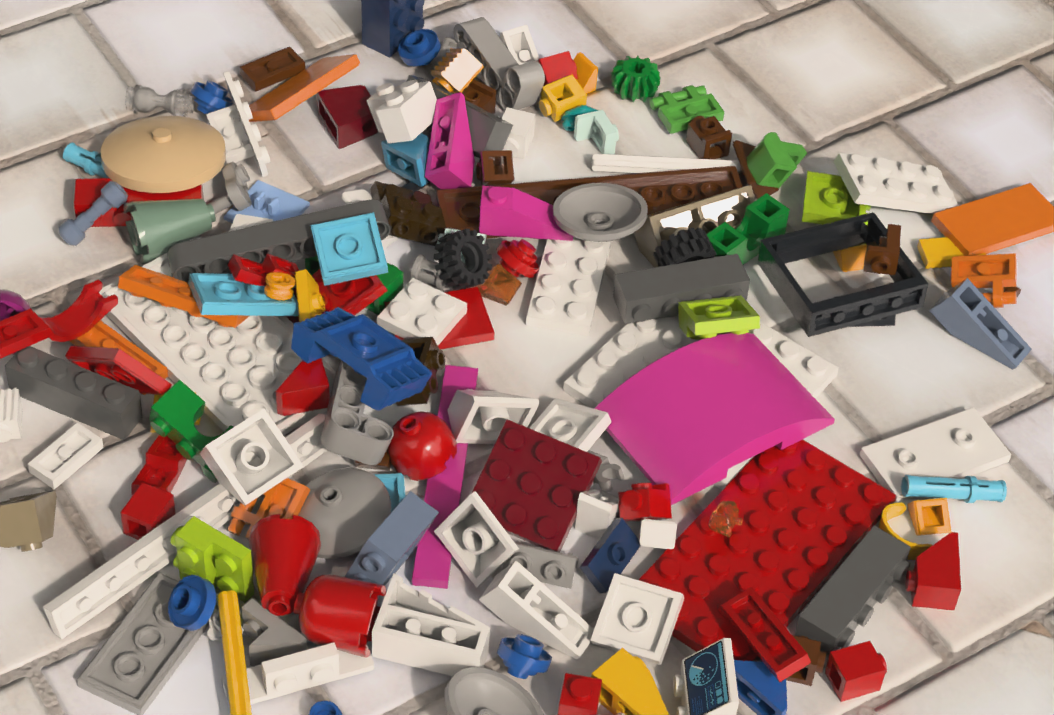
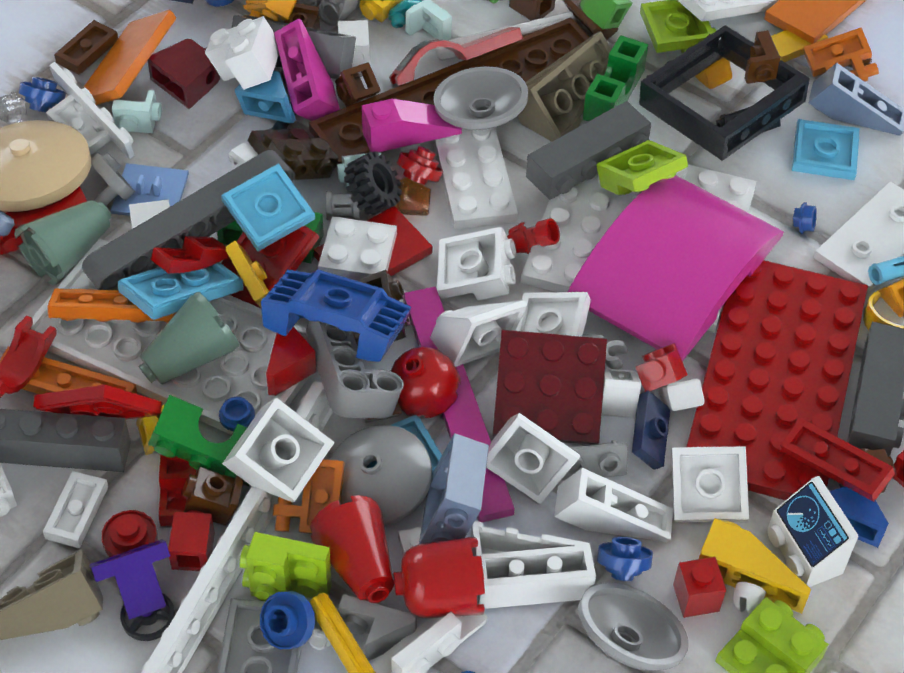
camera: 20 degrees left, 5 degrees up
(82, 534) = (138, 587): none -> dark purple piece
(99, 493) = (128, 531): none -> red plate
(183, 479) = (212, 494): none -> reddish brown brick
(223, 343) = (188, 341): none -> sand green cone
(235, 414) = (236, 411): none -> blue plate
(279, 286) = (214, 265): light orange bush -> none
(286, 140) = (137, 115): none -> light aqua bracket
(525, 360) = (476, 264): none -> white plate
(548, 172) = (406, 69): none -> piece
(598, 350) = (543, 233): none -> red piece
(684, 248) = (576, 111): black tyre -> none
(725, 518) = (737, 359): clear orange piece -> none
(868, 415) = (805, 218): none -> blue plate
(927, 359) = (826, 149): none -> medium azure tile

